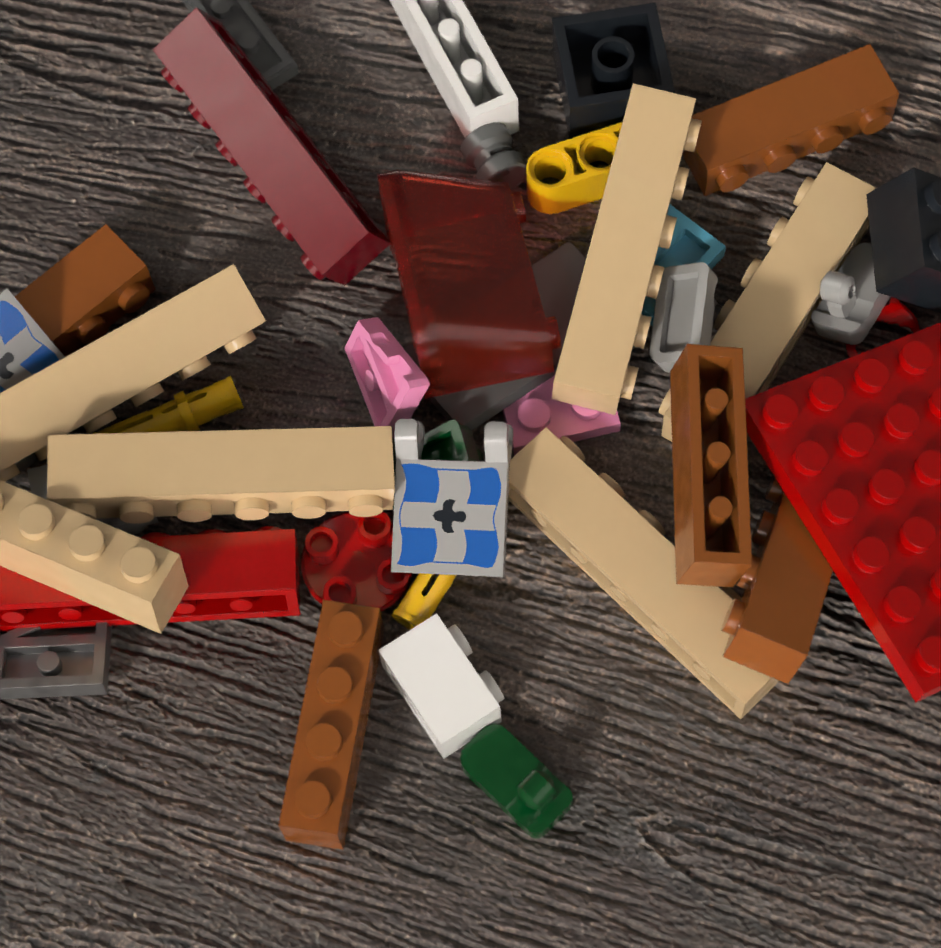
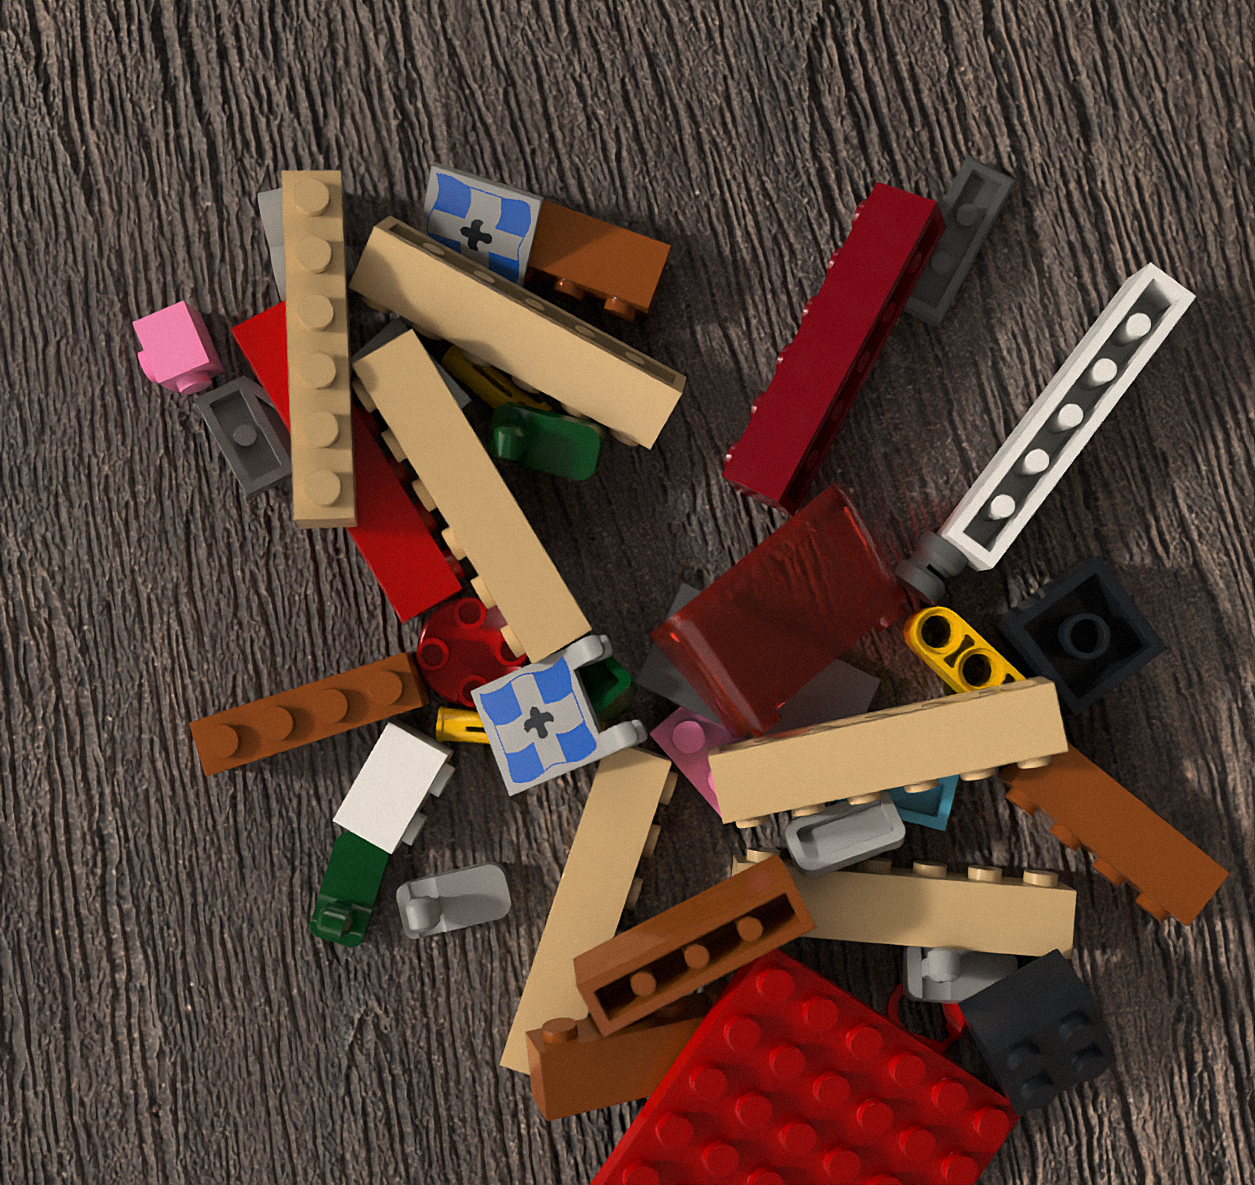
camera: 60 degrees right, 20 degrees up
(211, 394) = (545, 441): none -> dark green piece
(384, 373) = (654, 585): bright pink wing -> none
(575, 691) = (454, 899): none -> light grey piece

